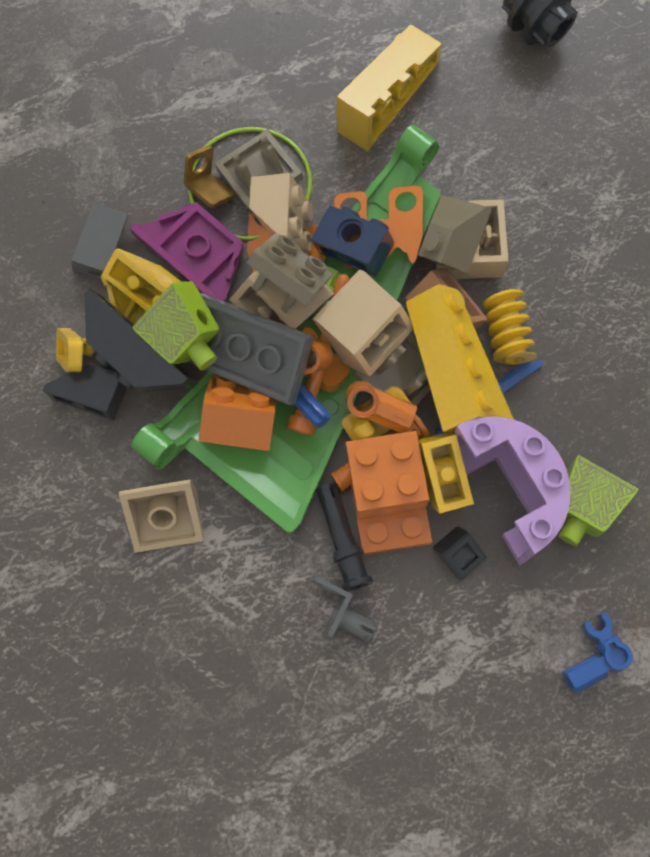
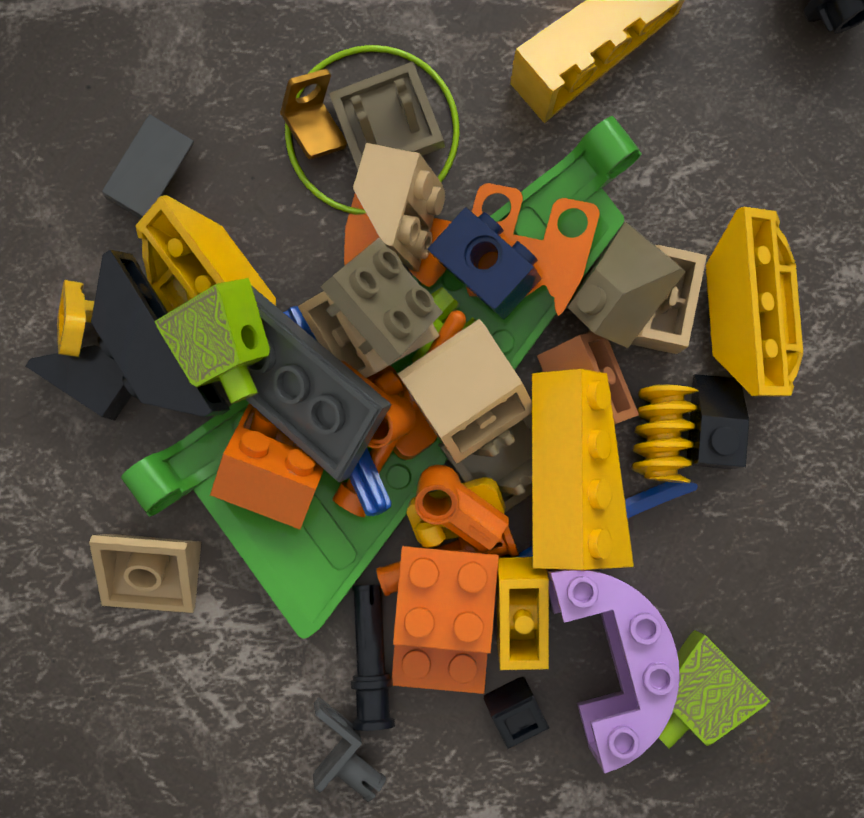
camera: 15 degrees right, 10 degrees up
(194, 248) = (275, 211): magenta wing -> none
(545, 226) = (755, 304): none -> yellow wedge
(547, 316) = (720, 423): none -> black slope

